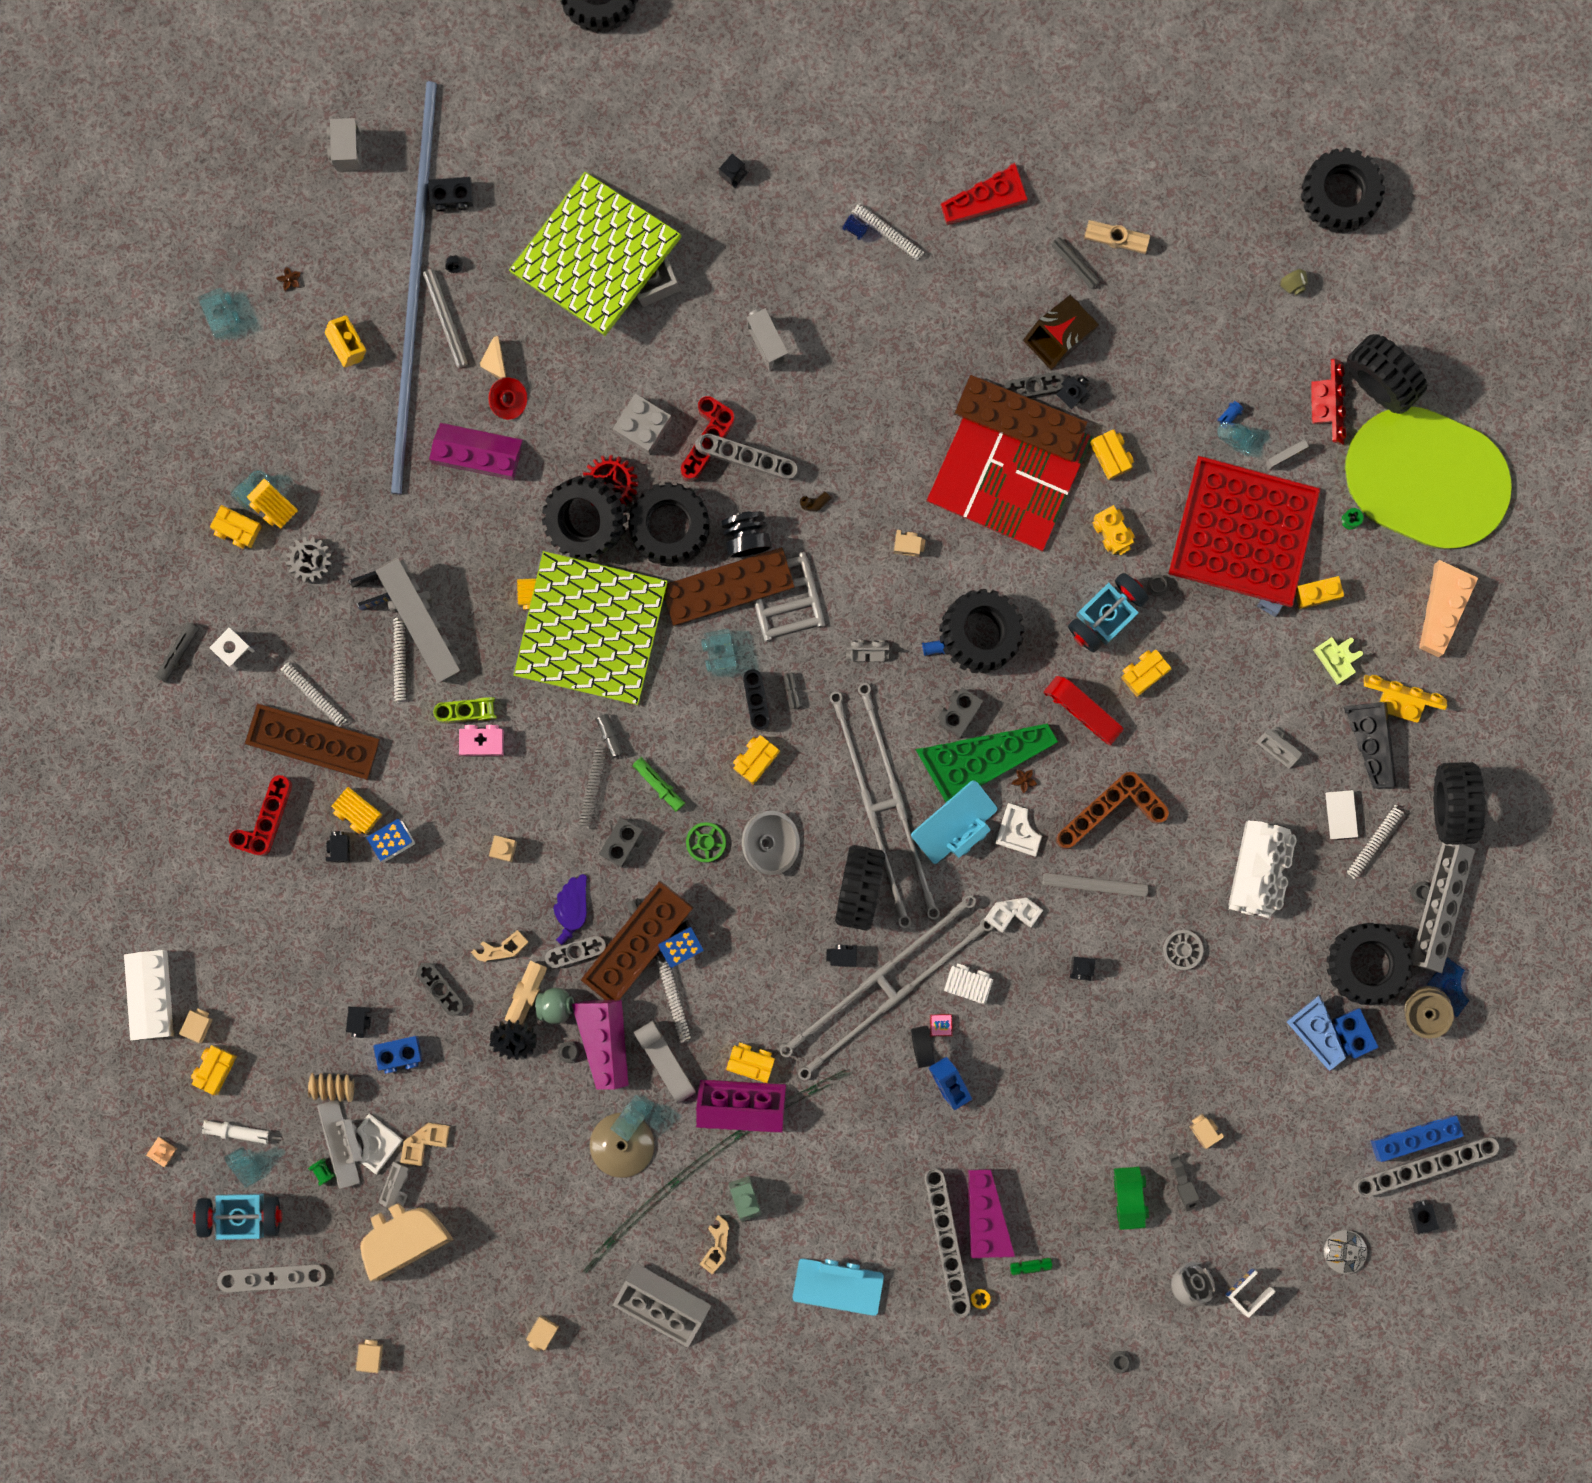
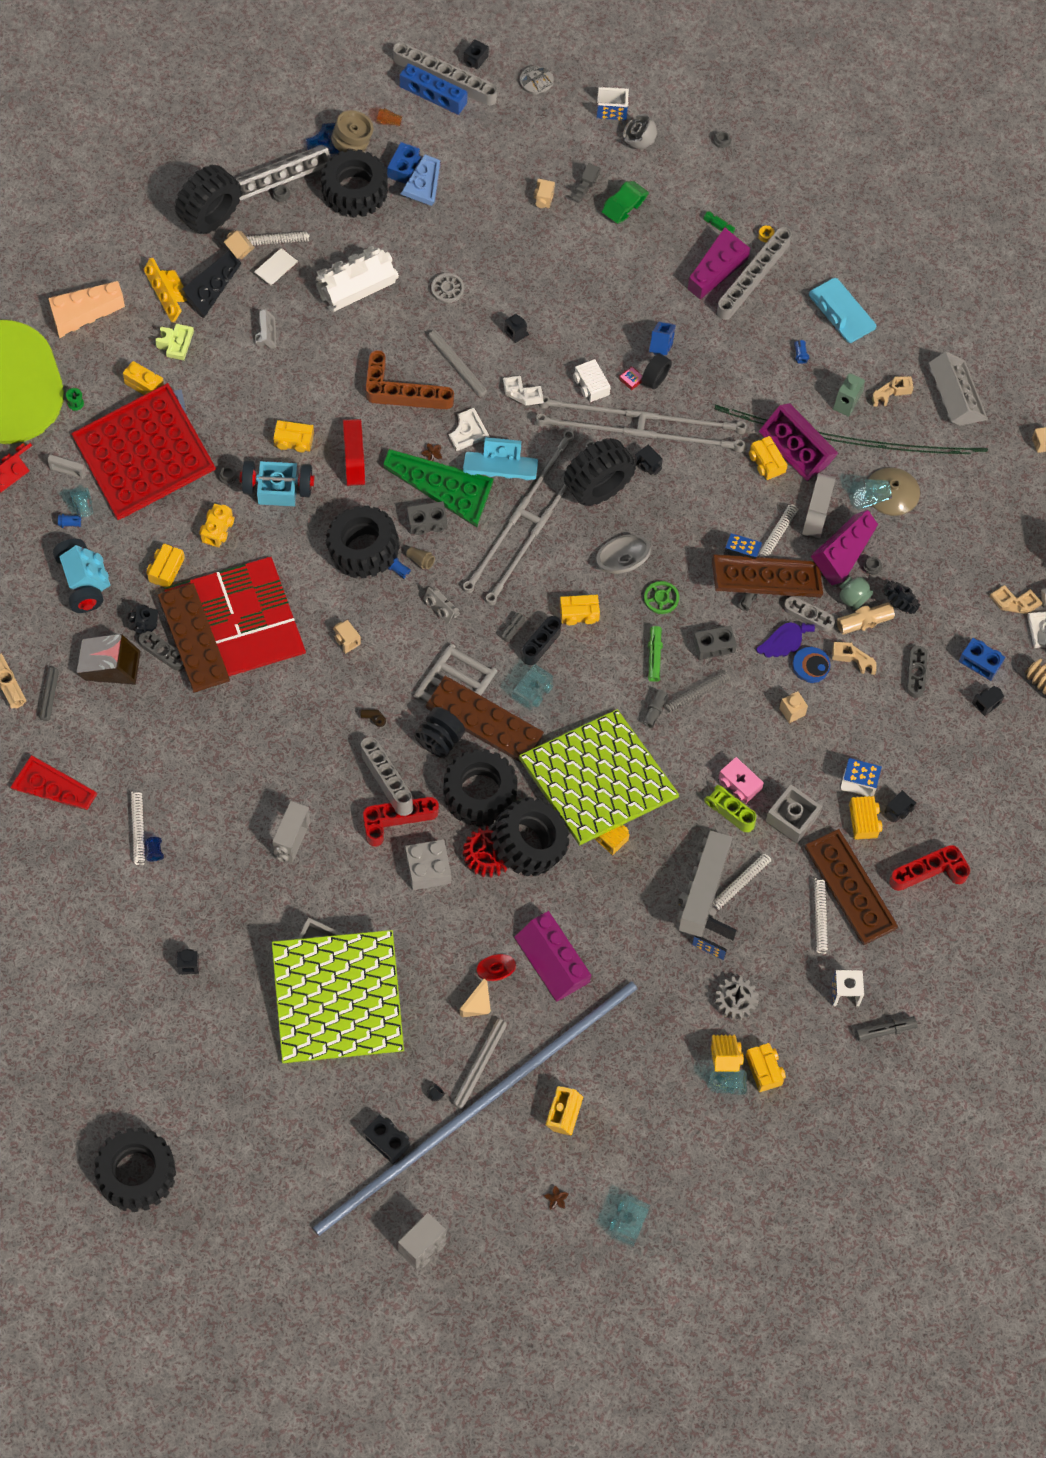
camera: 135 degrees left, 20 degrees down
(411, 753) = (793, 813): none -> light grey brick
(529, 906) = (811, 664): none -> tile
(829, 1204) = (801, 353): none -> blue pin
(927, 673) = (421, 558): none -> dark tan cone
(1163, 376) = (83, 573): none -> medium azure brick
(1392, 799) = (238, 244): none -> tan brick
(1421, 1067) = (387, 117): none -> clear orange cone

